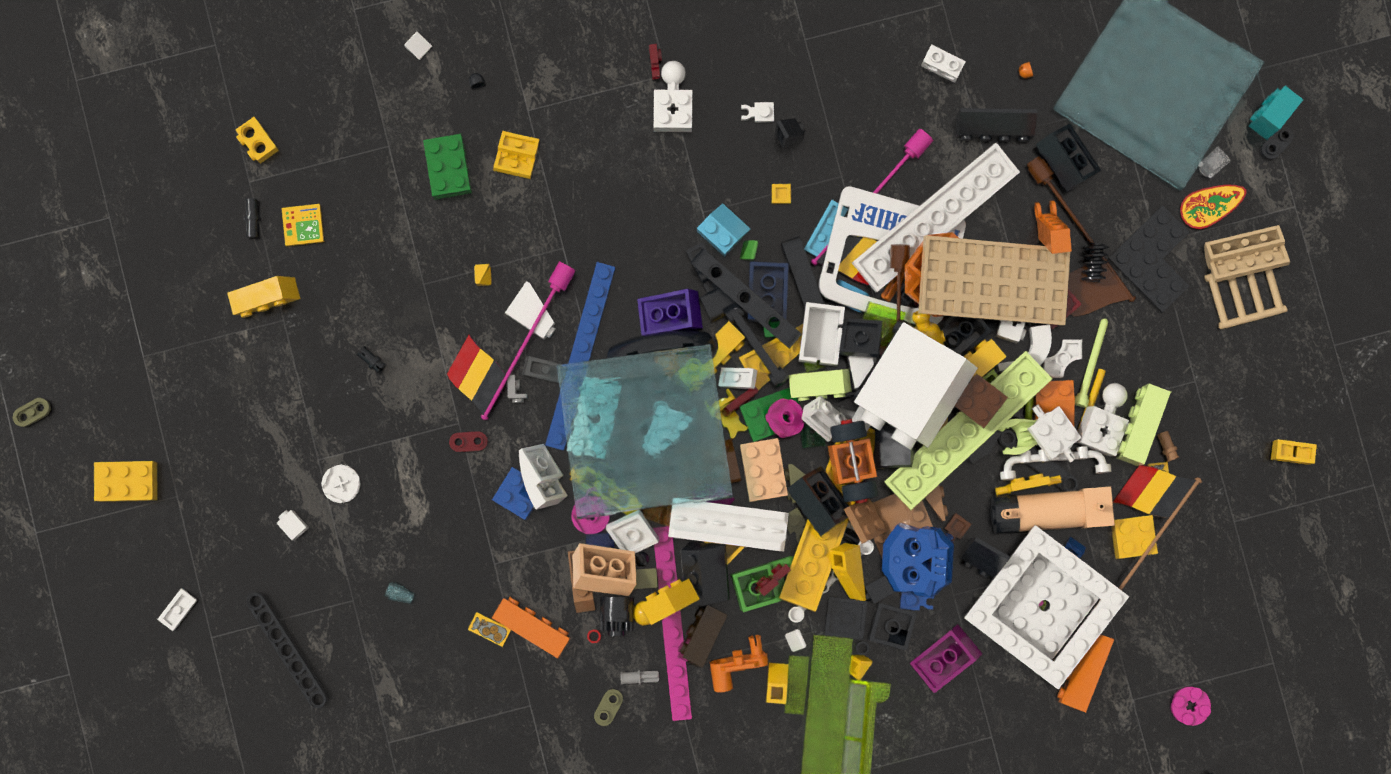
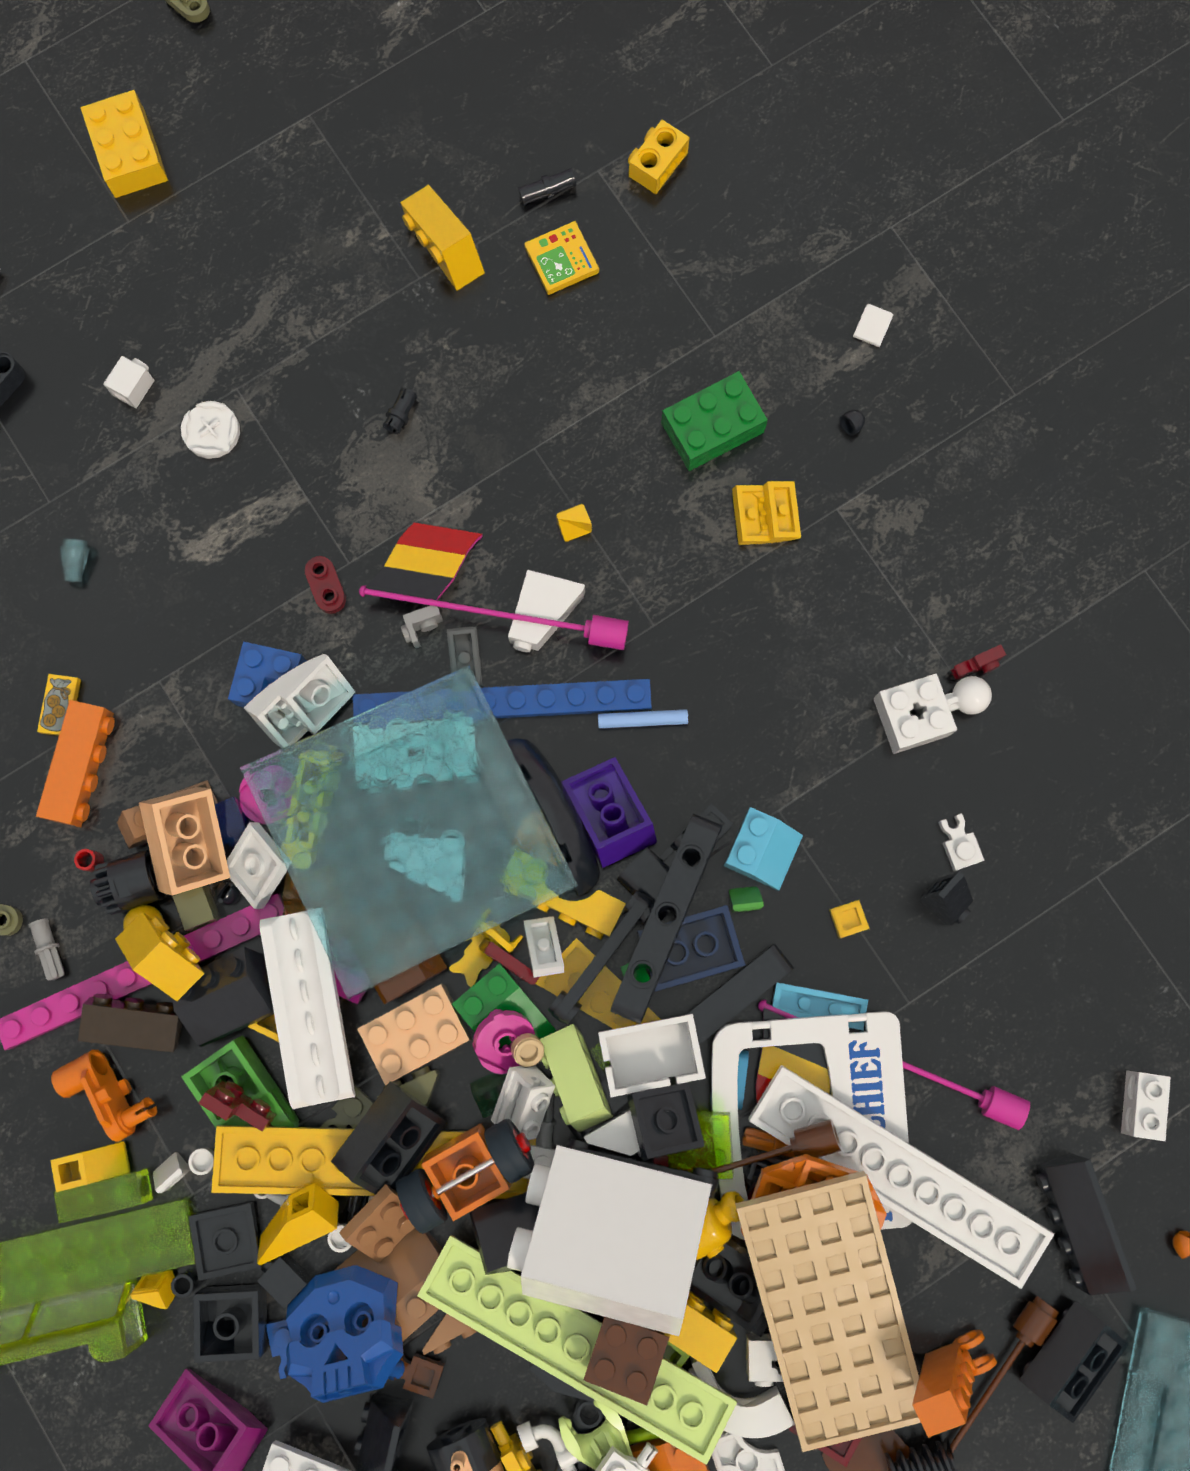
camera: 75 degrees right, 5 degrees down
(619, 274) = (644, 718): none -> light blue piece
(795, 406) = (527, 1050): none -> tan tile

